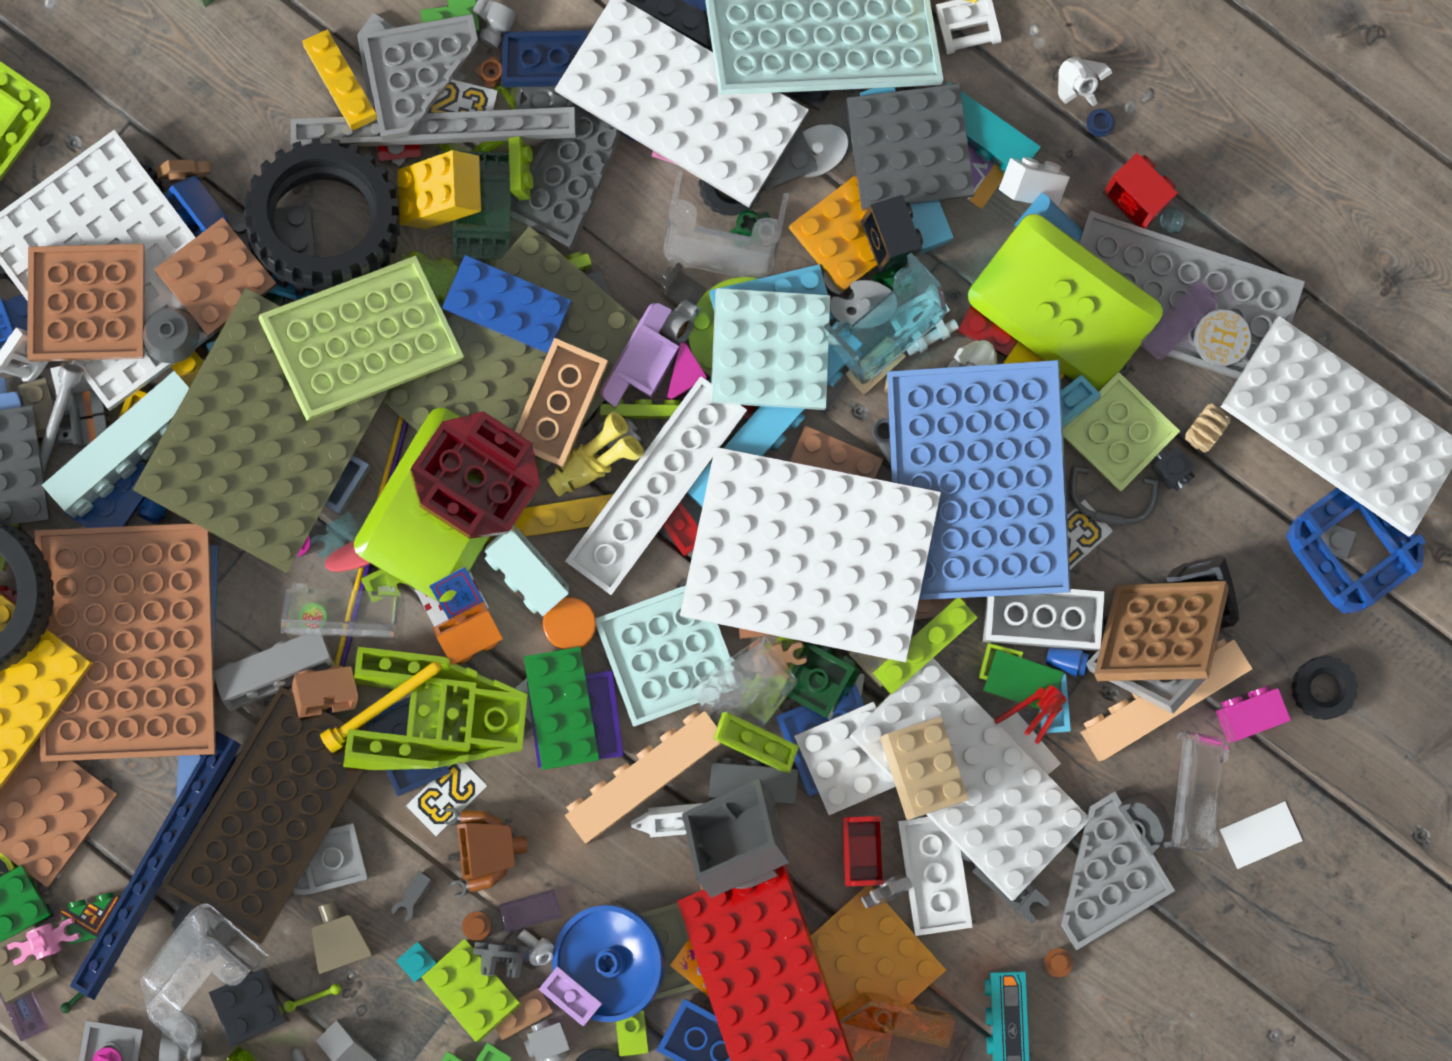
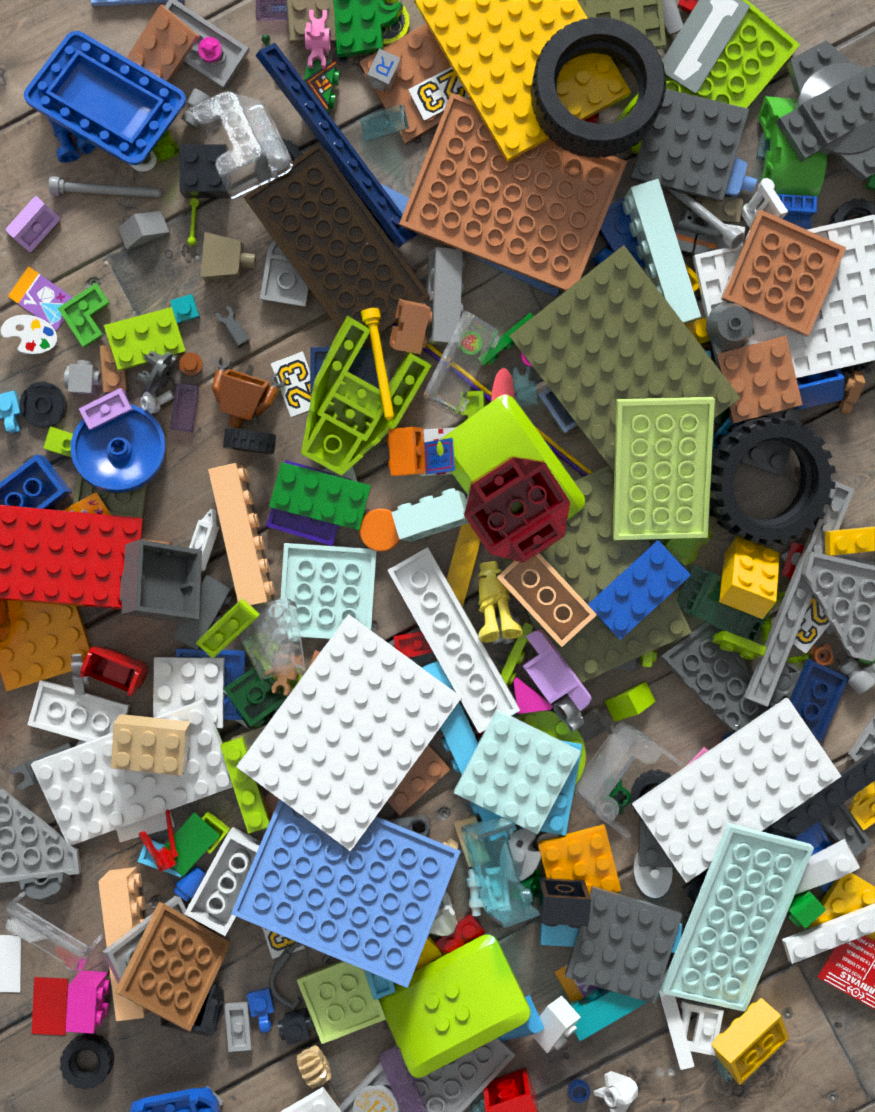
camera: 120 degrees right, 5 degrees up
(45, 781) = (433, 94): none -> sticker
(47, 850) = (384, 70): none -> light grey brick
(105, 825) = (384, 123): none -> clear light blue plate
(293, 576) = (505, 341): none -> green plate
(534, 815) = (249, 441): none -> black tyre
(638, 259) = (630, 702): none -> lime slope
(978, 48) = (676, 1029): none -> white sticker
(1170, 519) = (261, 1005): none -> blue plate
(1205, 533) = (238, 1026): none -> light grey plate
(1285, 760) = (49, 1006): none -> red sticker

